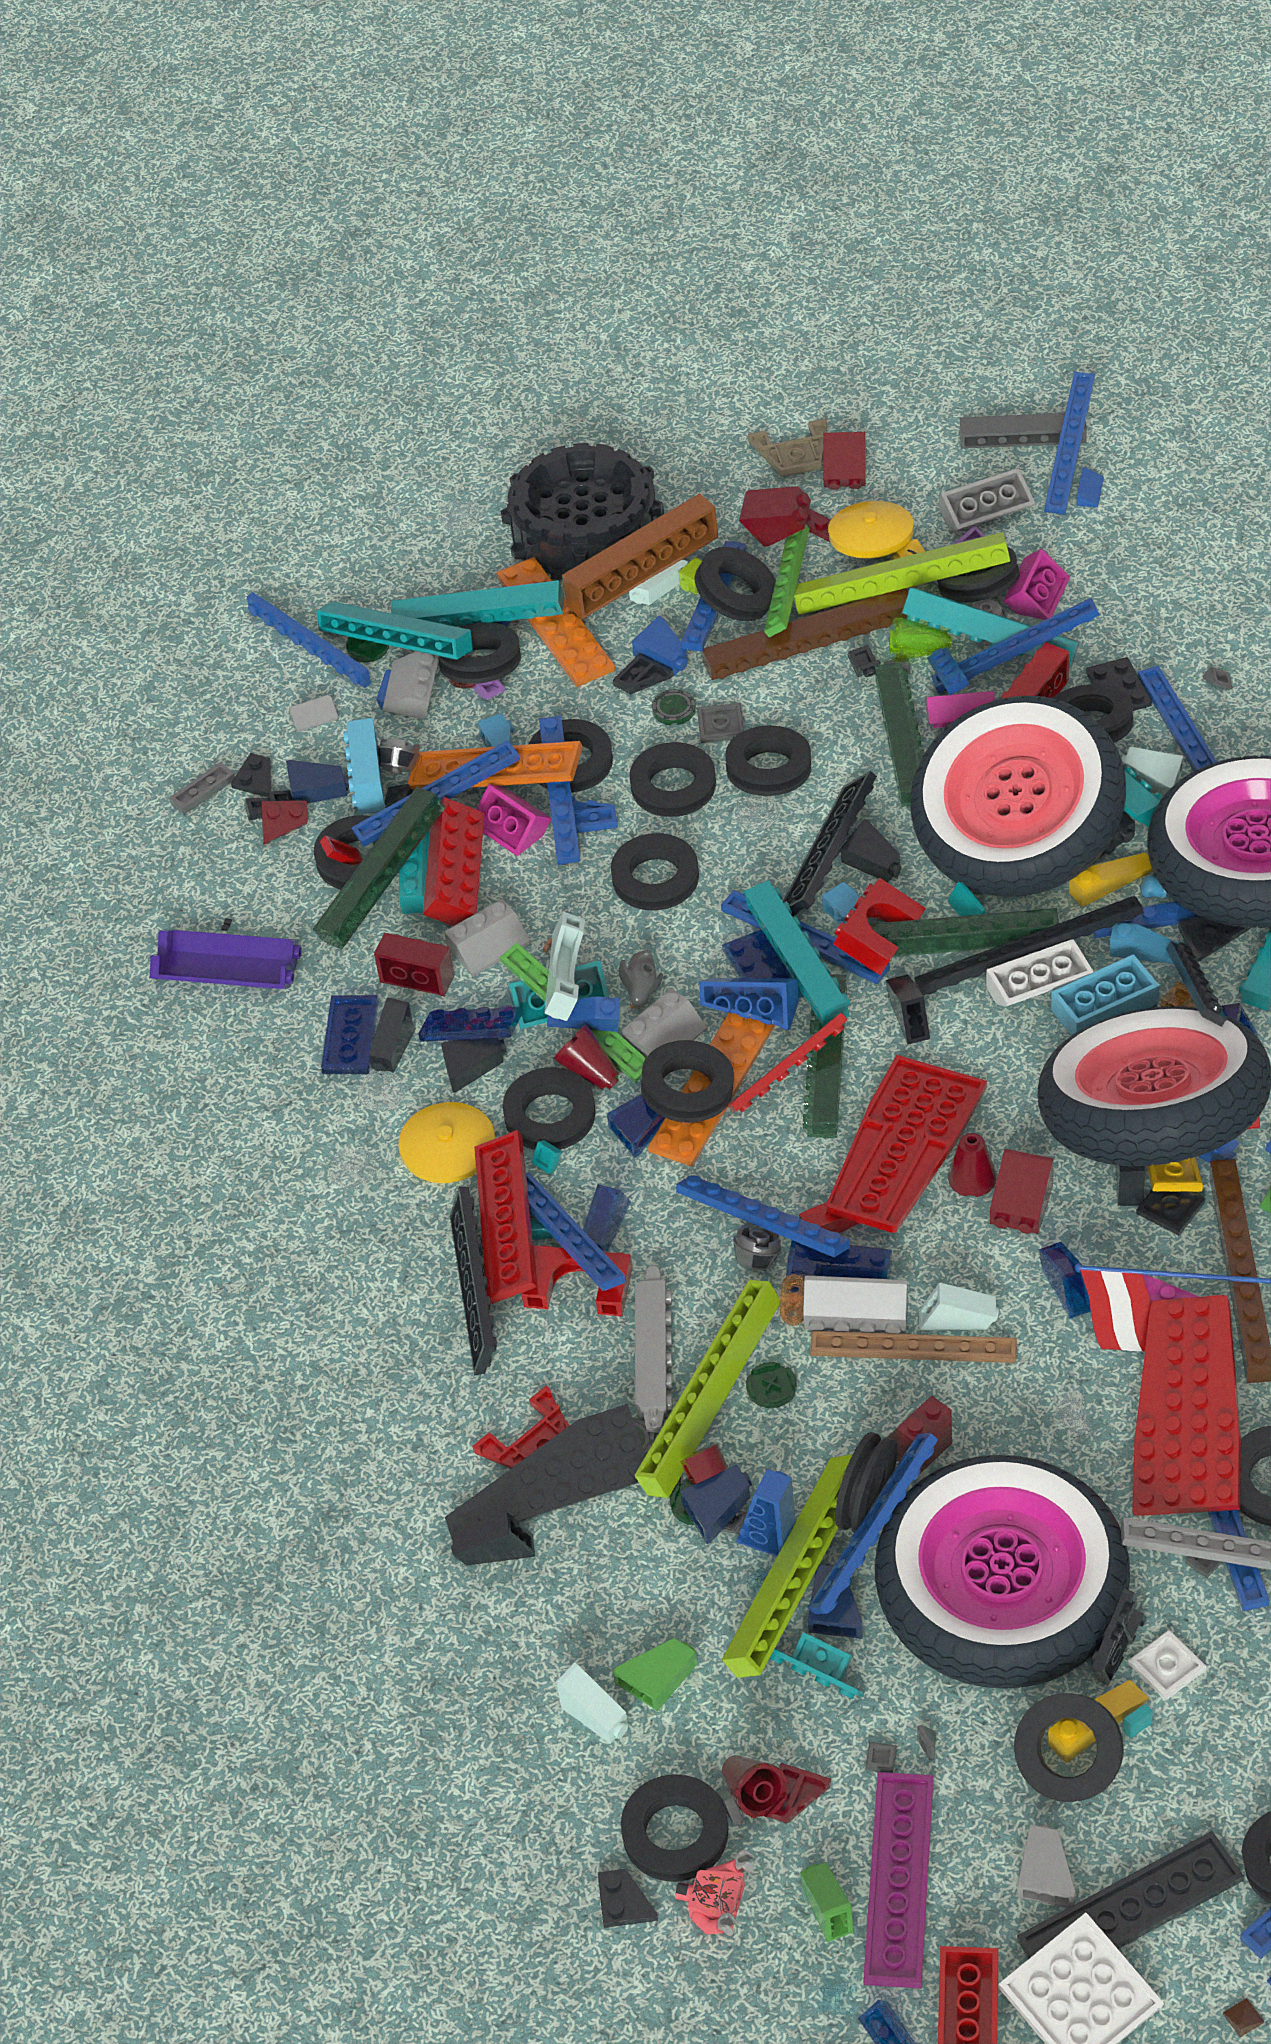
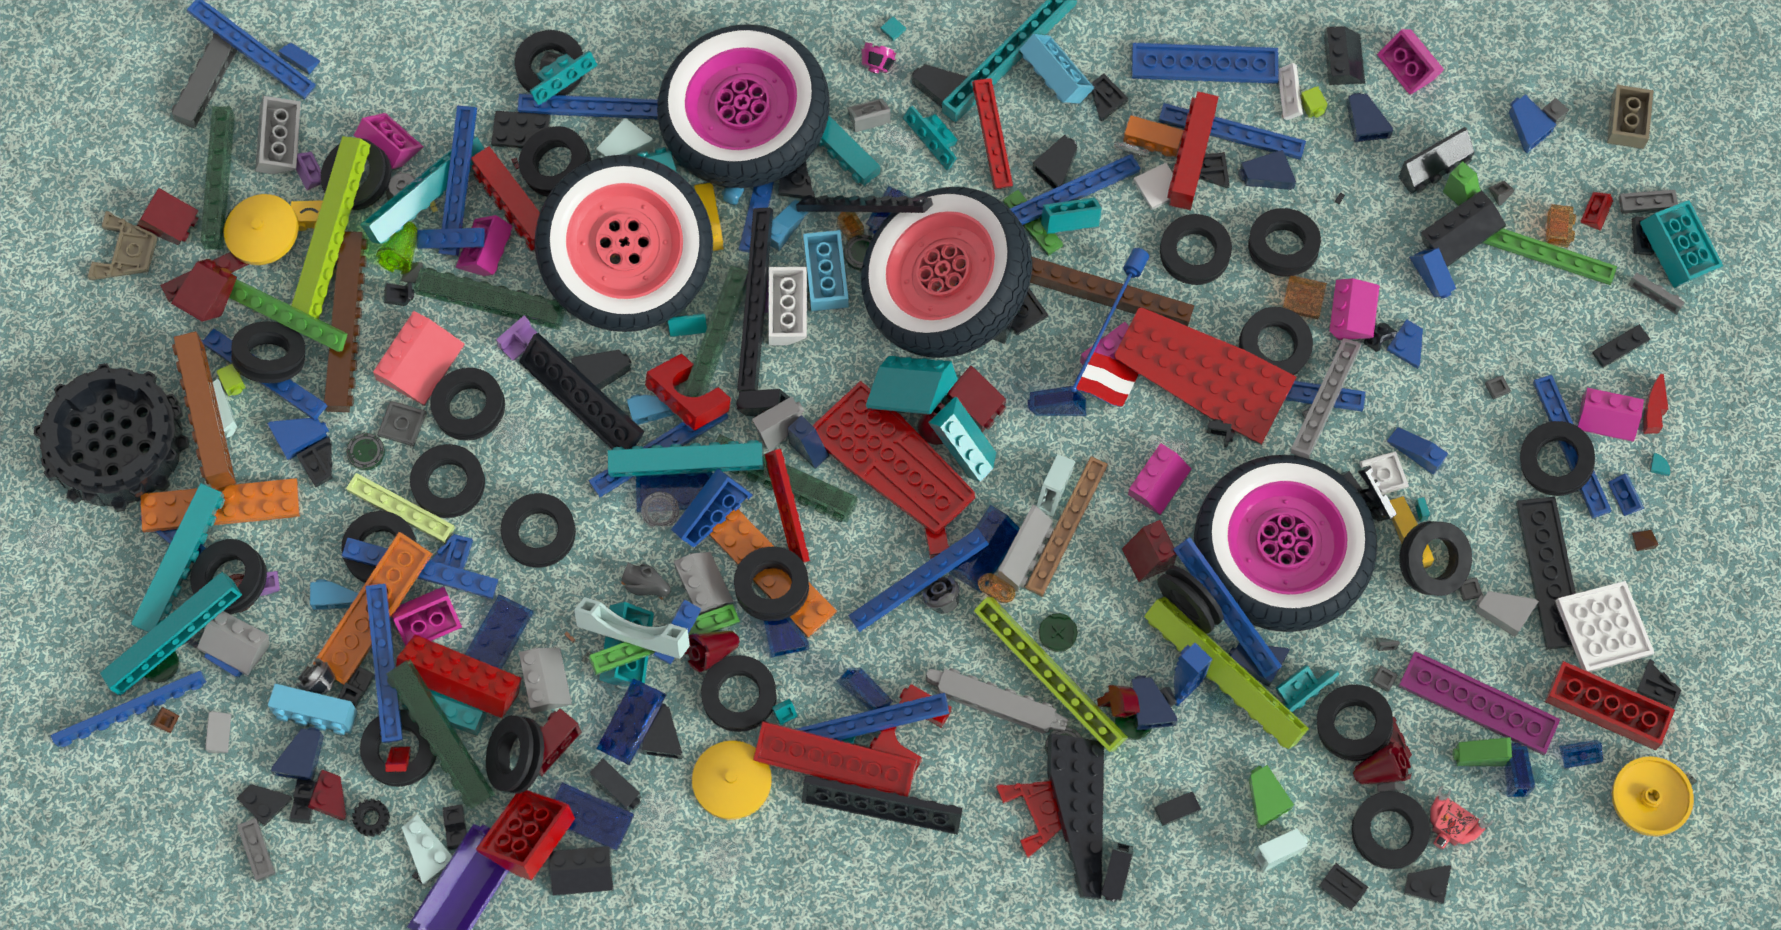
camera: 75 degrees left, 20 degrees up
(259, 915) = (426, 849): none -> light aqua wing
(269, 851) = (362, 809): none -> black tyre
(286, 1048) = (581, 870): none -> black slope
(298, 927) = (455, 825): none -> black slope
(299, 977) = (526, 833): none -> red slope
(309, 672) = (164, 719): none -> reddish brown slope
(382, 932) = (530, 754): none -> black tyre
(522, 886) = (499, 632): none -> clear blue plate
(576, 1799) = (1343, 887): none -> black plate
(601, 1582) = (1177, 808): none -> black slope
(623, 755) = (395, 504): none -> yellowish green plate
(730, 960) = (660, 510): none -> clear tile
(800, 1703) = (1354, 696): none -> black tyre
(801, 701) = (418, 358): none -> coral slope
(820, 1950) = (1519, 772): none -> clear blue slope
(862, 763) = (516, 338): none -> medium lavender panel
(878, 1051) = (807, 442): none -> dark blue slope
(883, 1015) = (774, 423): none -> light grey slope
(917, 477) = (217, 177): none -> clear green brick
(957, 1190) = (964, 440): none -> teal slope
(997, 1113) = (911, 384): none -> teal slope
(1022, 1415) = (1159, 479): none -> dark pink slope
(1057, 1817) = (1470, 589): none -> dark grey tile
(1124, 1467) = (1217, 427): none -> black bracket
(1196, 682) = (561, 74): none -> teal bracket
(1218, 655) = (538, 43): none -> black tyre
(1221, 1692) = (1418, 449): none -> blue slope

